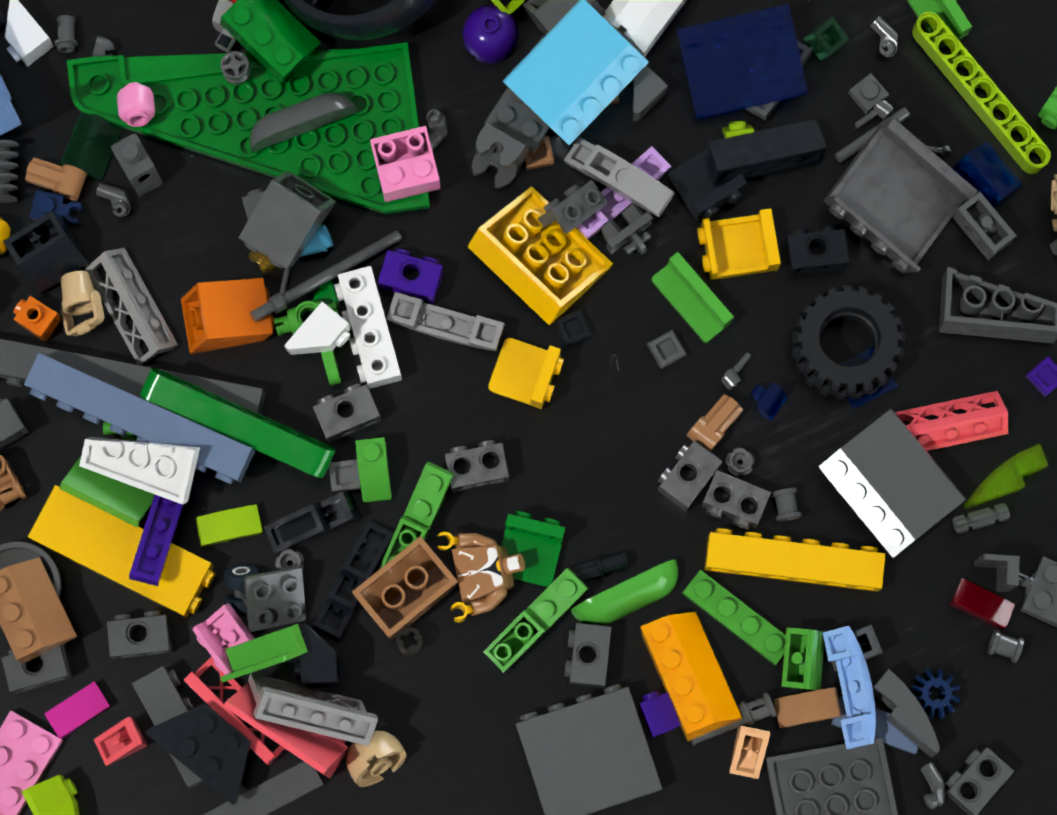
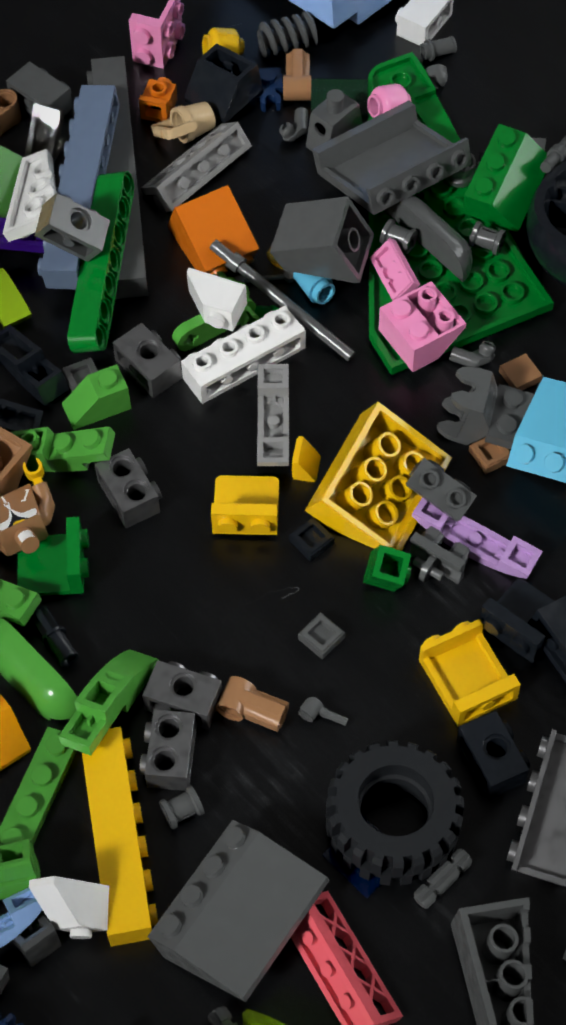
camera: 75 degrees right, 20 degrees down
(49, 439) = (45, 131): none -> clear smoke slope
(213, 126) = (389, 159): none -> dark grey panel
(216, 436) = (72, 227): none -> dark grey brick
(296, 149) = (405, 238): none -> dark grey bush
(325, 73) = (487, 238): none -> dark grey bush
(334, 166) = (394, 269): none -> bright pink plate
(423, 287) = (306, 359): dark purple brick -> none
(466, 98) = (520, 372): none -> medium nougat tile
(497, 309) = (305, 461): none -> yellow slope
(620, 176) = (491, 526): light grey slope -> none
(631, 276) = (387, 568): none -> green brick
(683, 534) = (104, 697): none -> bright green slope
(692, 298) = (388, 644): bright green panel -> none
(739, 454) = (213, 737): flat silver plate -> none
(769, 400) = (298, 753): clear blue tile -> none
(855, 605) = (73, 904): none -> white slope
(912, 341) = (442, 878): none -> dark grey axle

